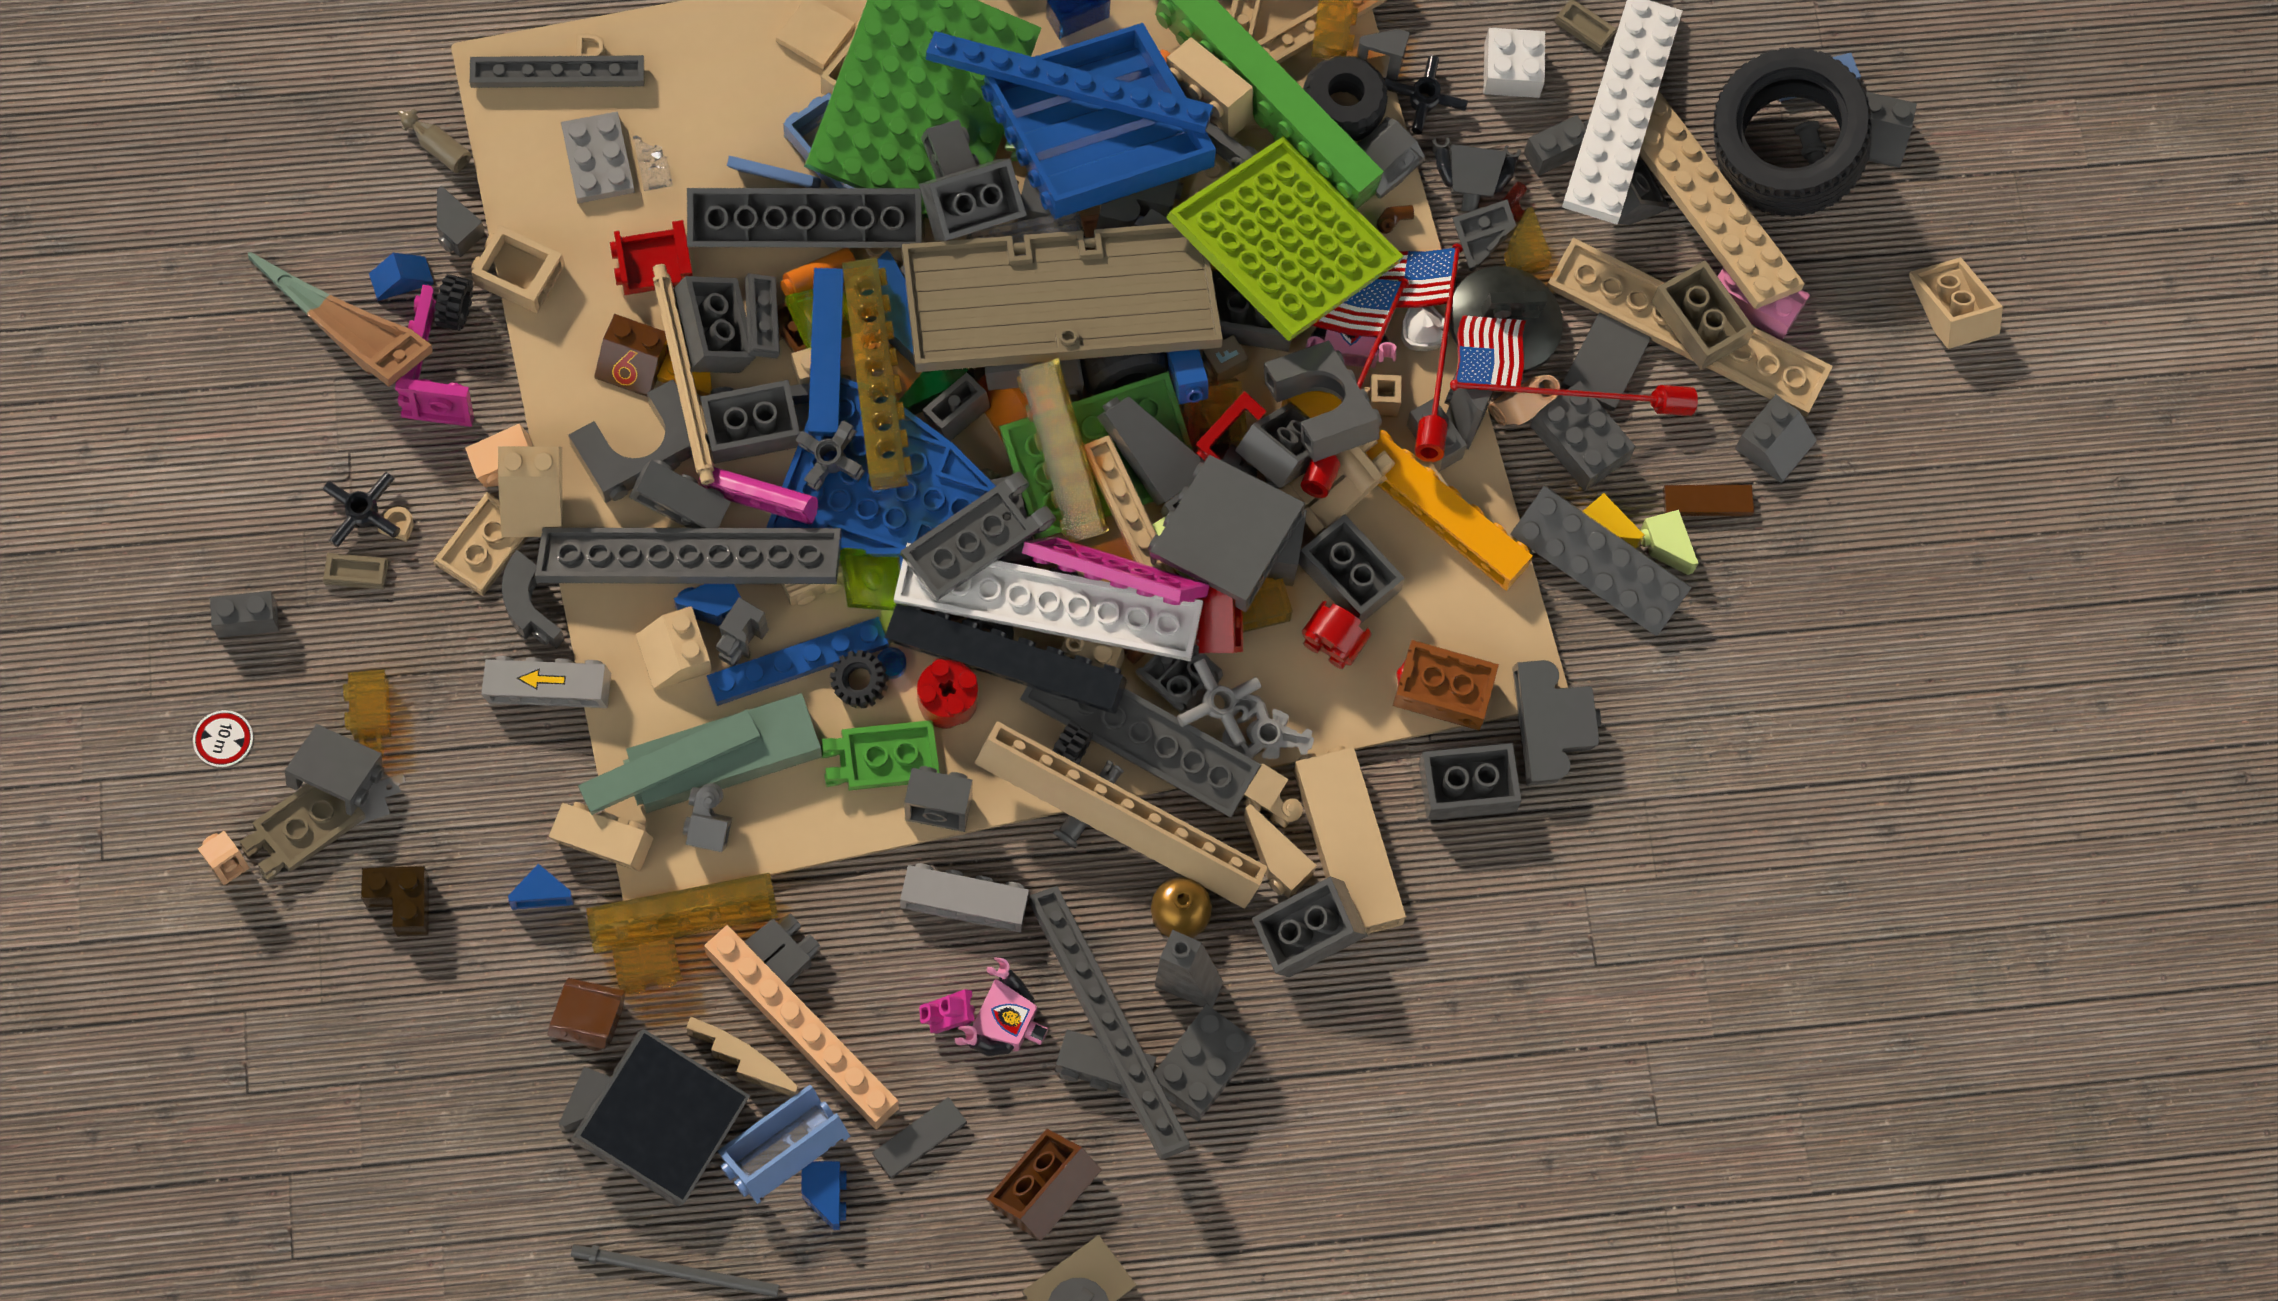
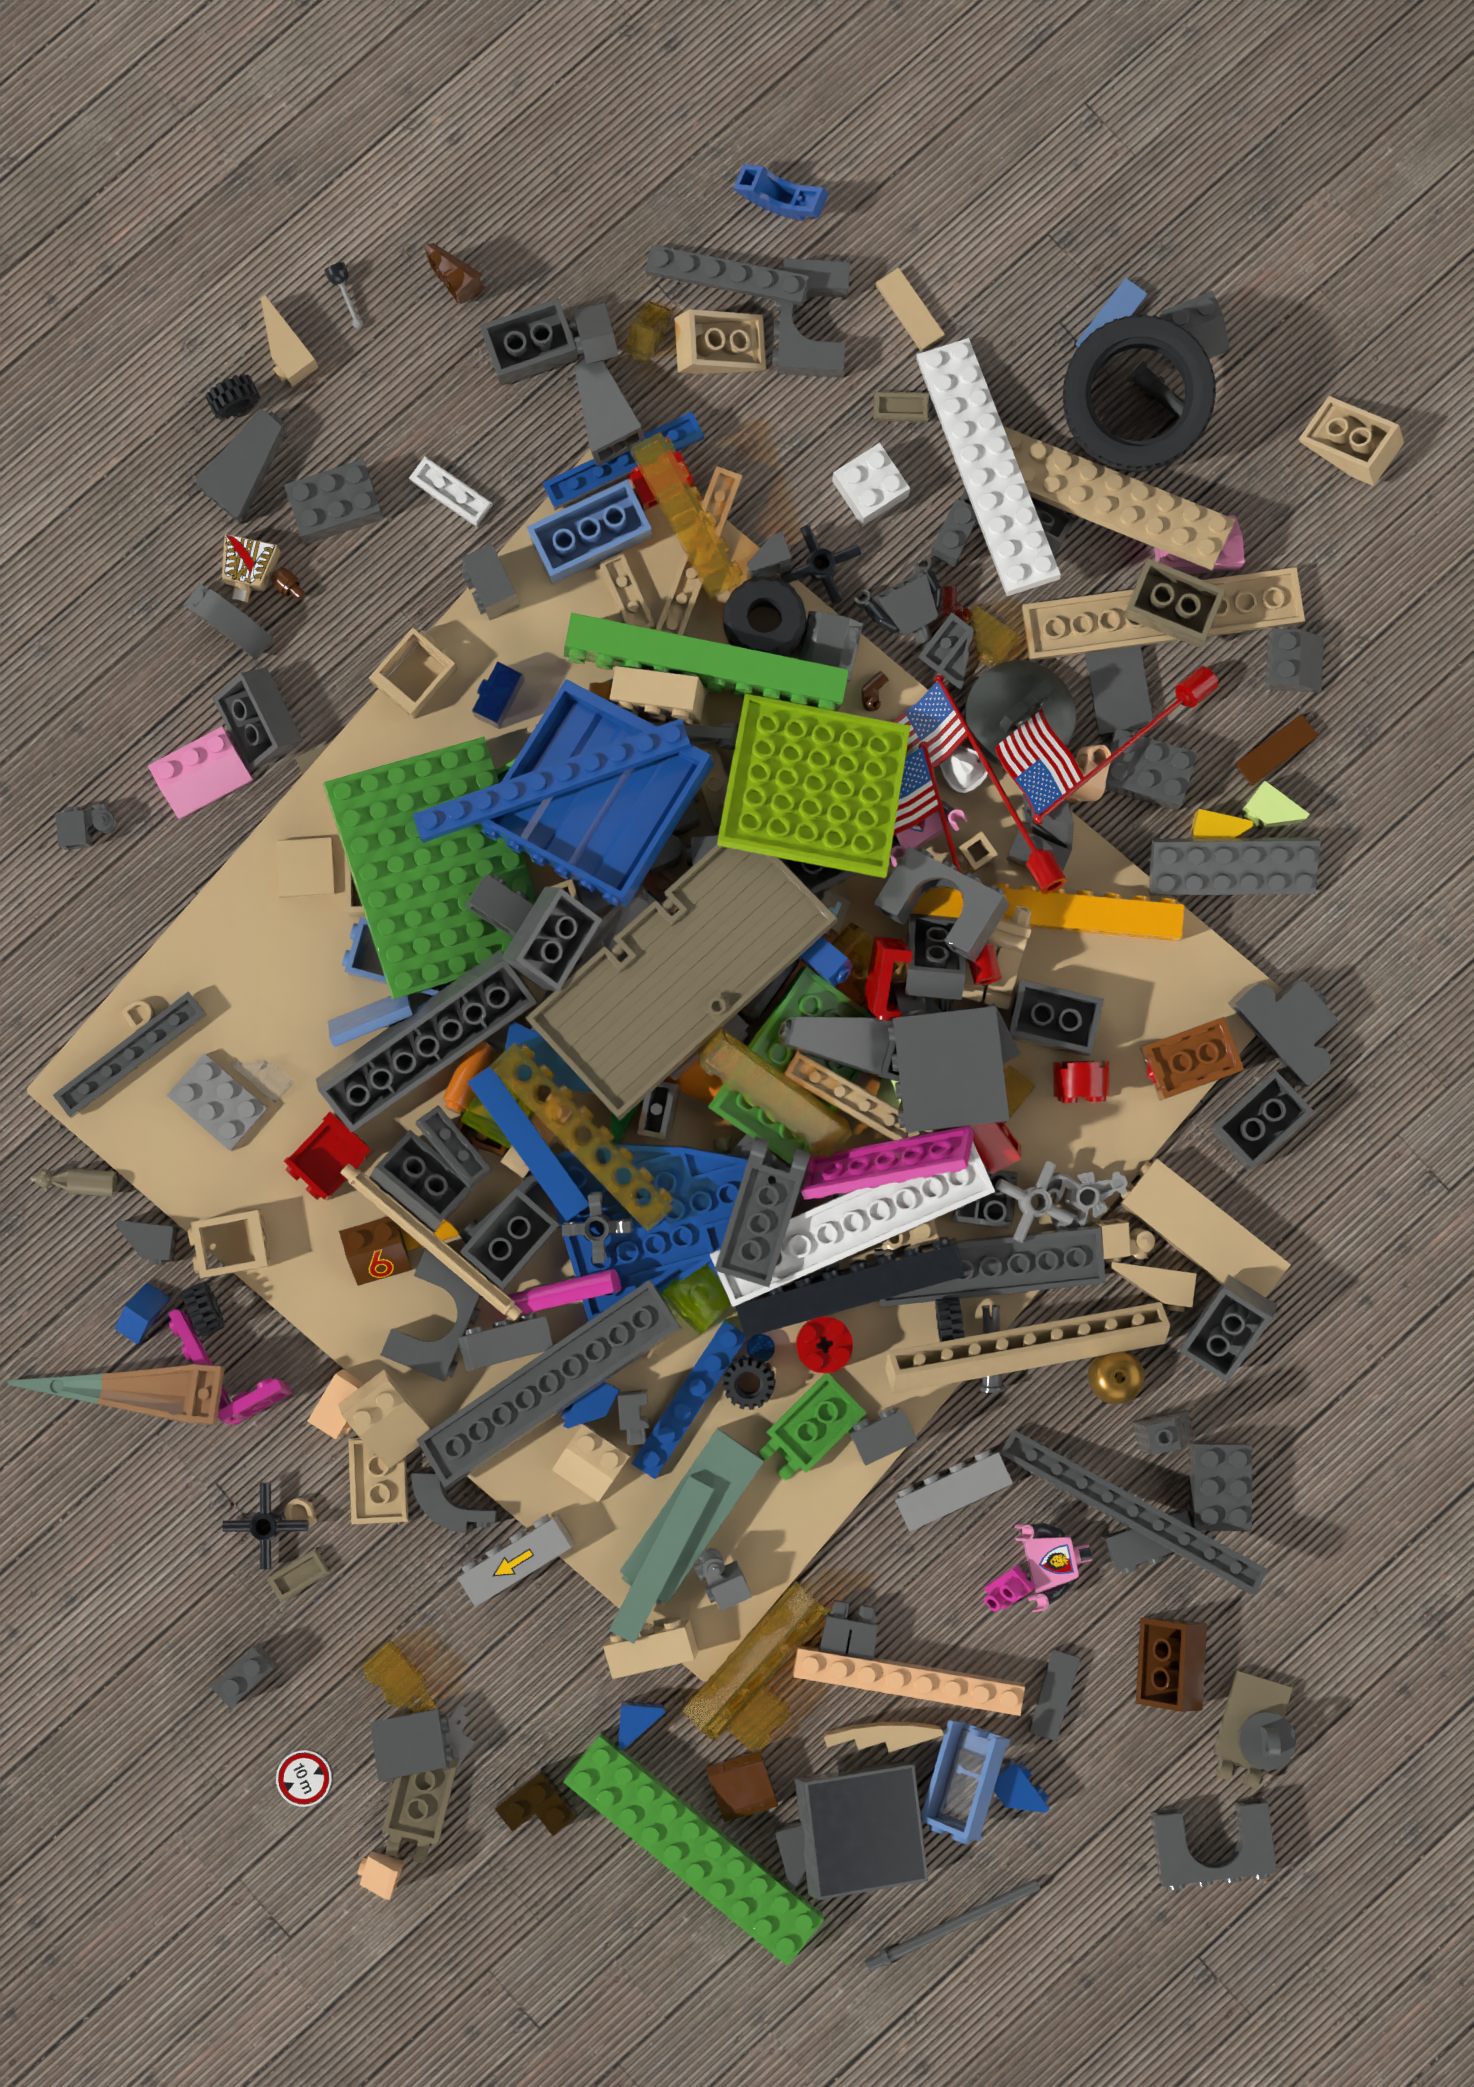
camera: 30 degrees left, 15 degrees up
(503, 1033) = (694, 1848): none -> bright green brick

